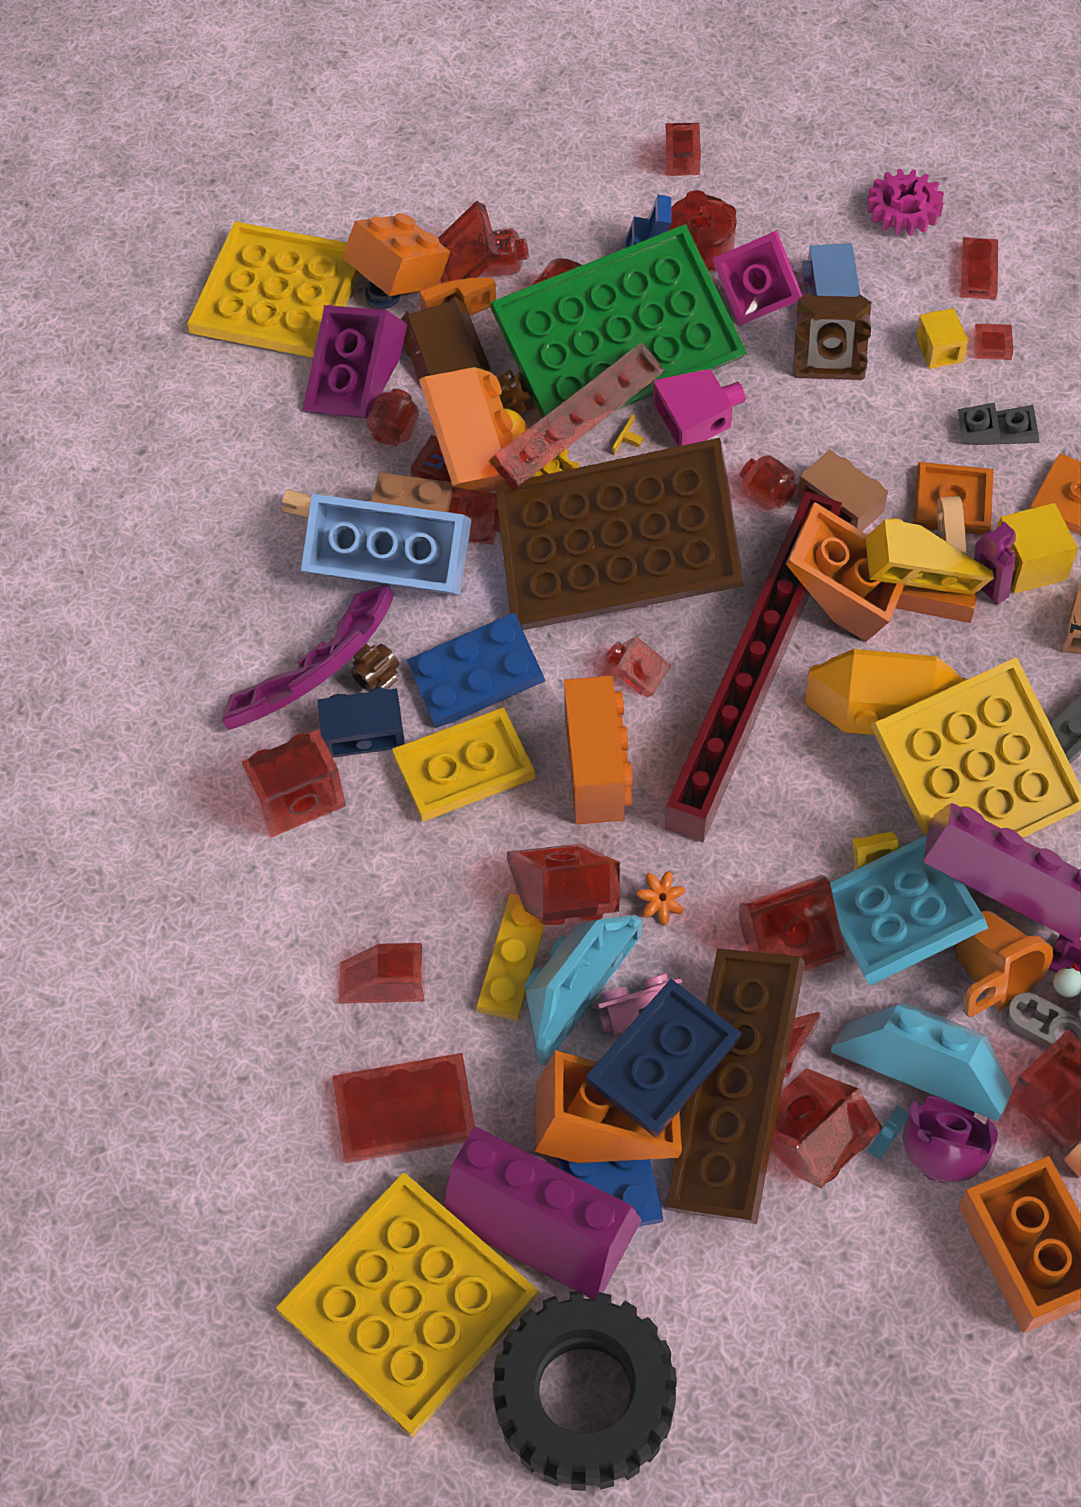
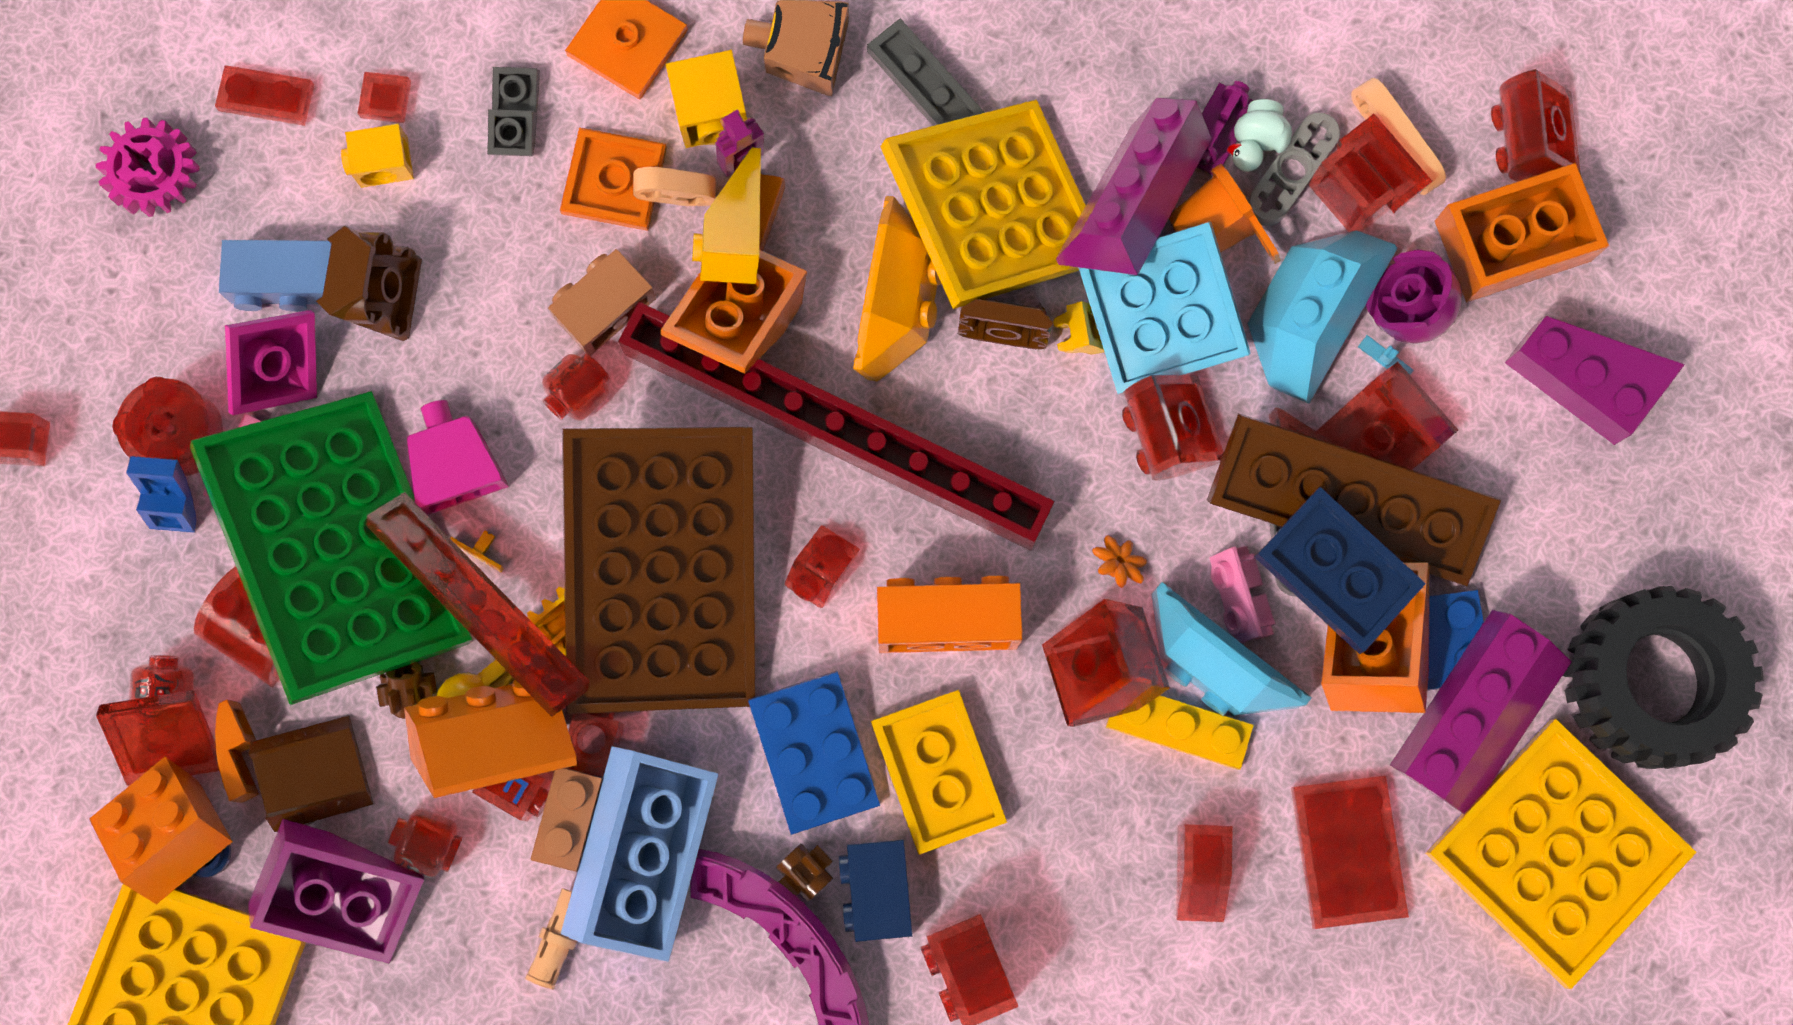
camera: 90 degrees left, 20 degrees up
(873, 785) = (1005, 323): none -> reddish brown slope
(895, 1327) = (1593, 375): none -> magenta wedge

